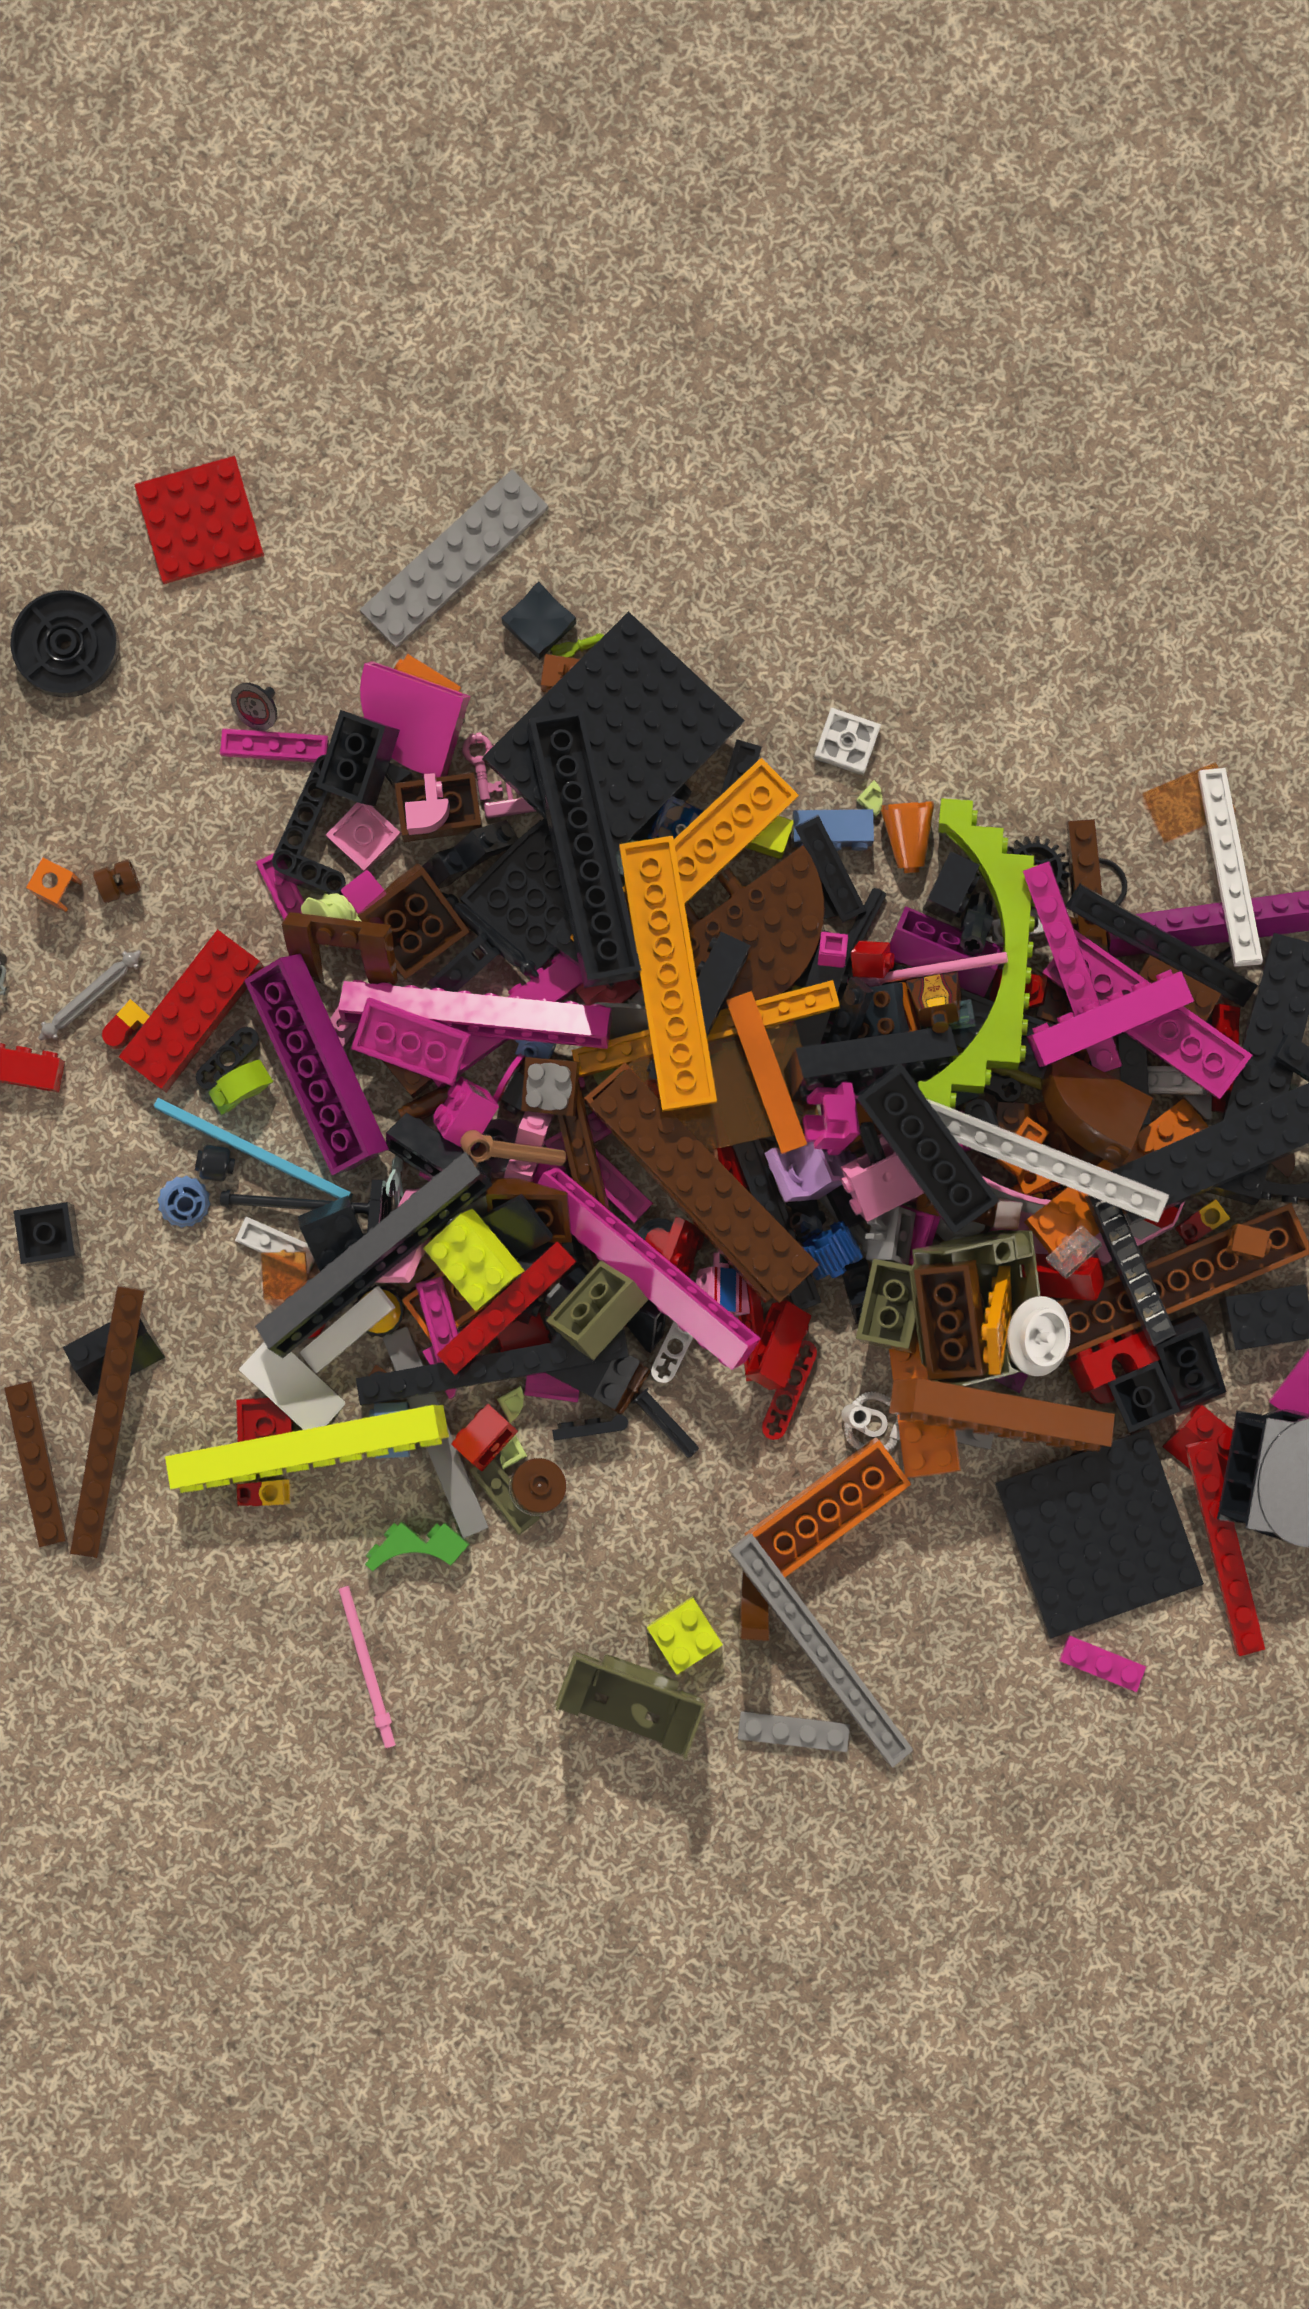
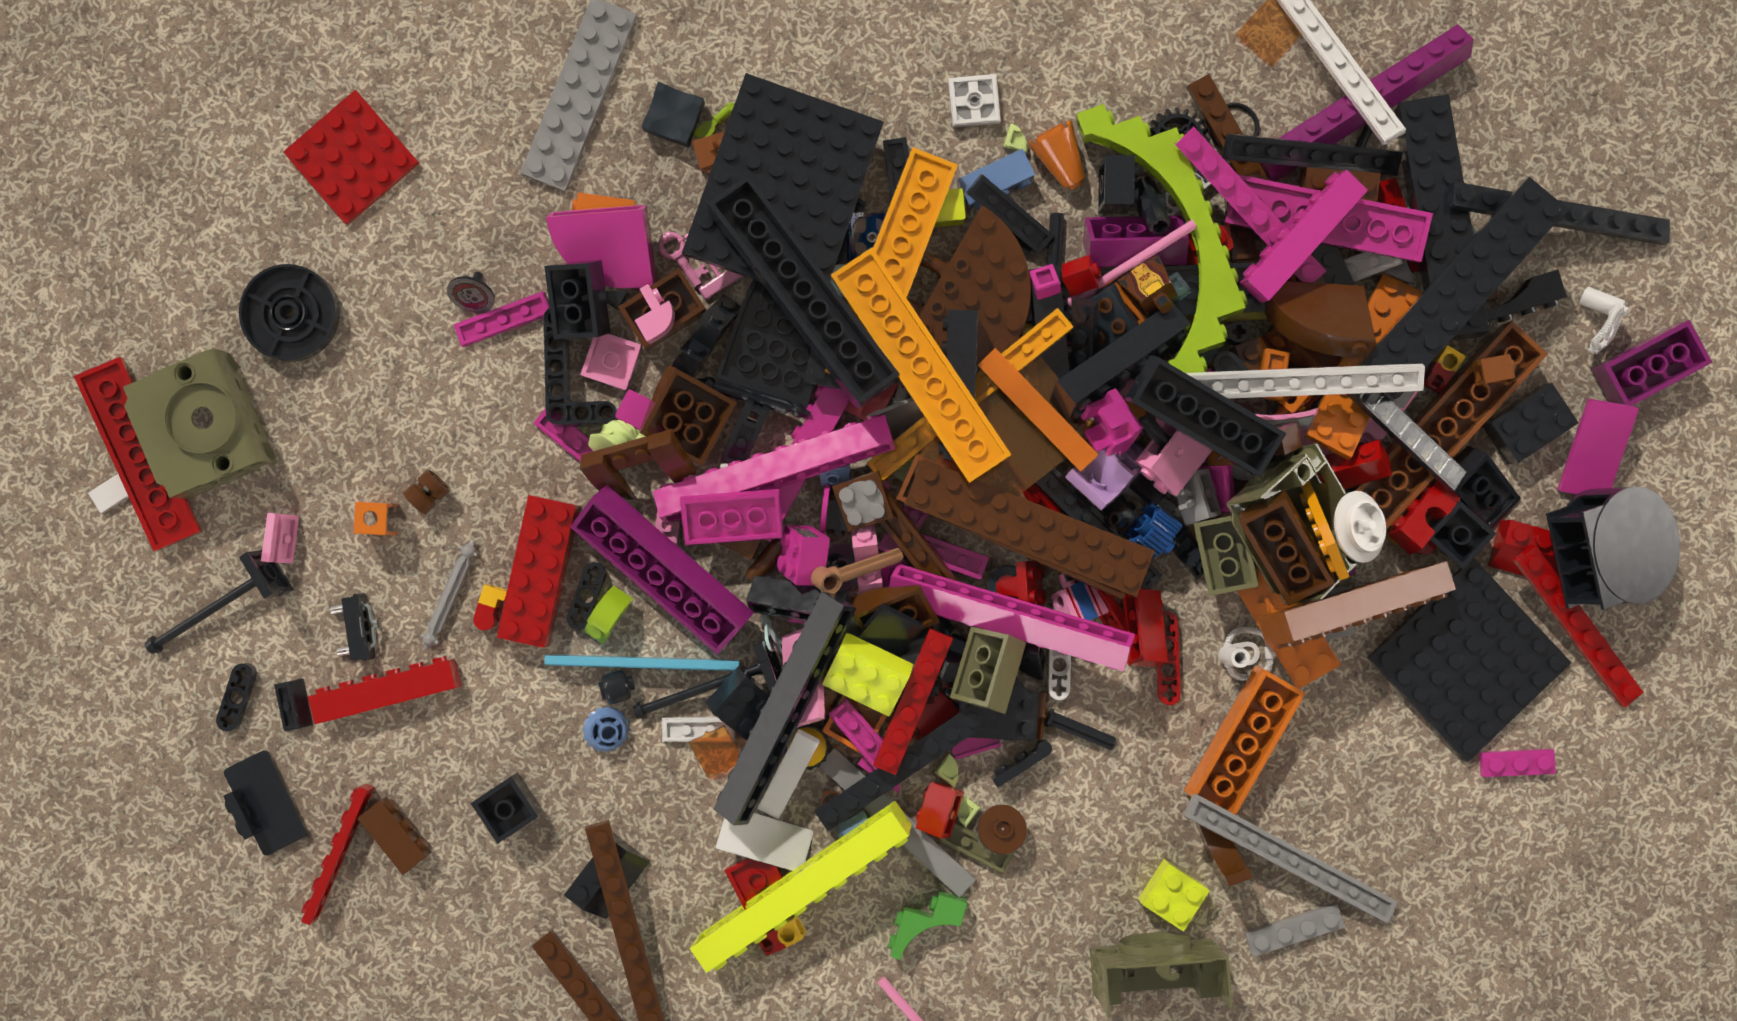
camera: 20 degrees left, 5 degrees up
(1073, 1251) = (1359, 445): clear hips -> none

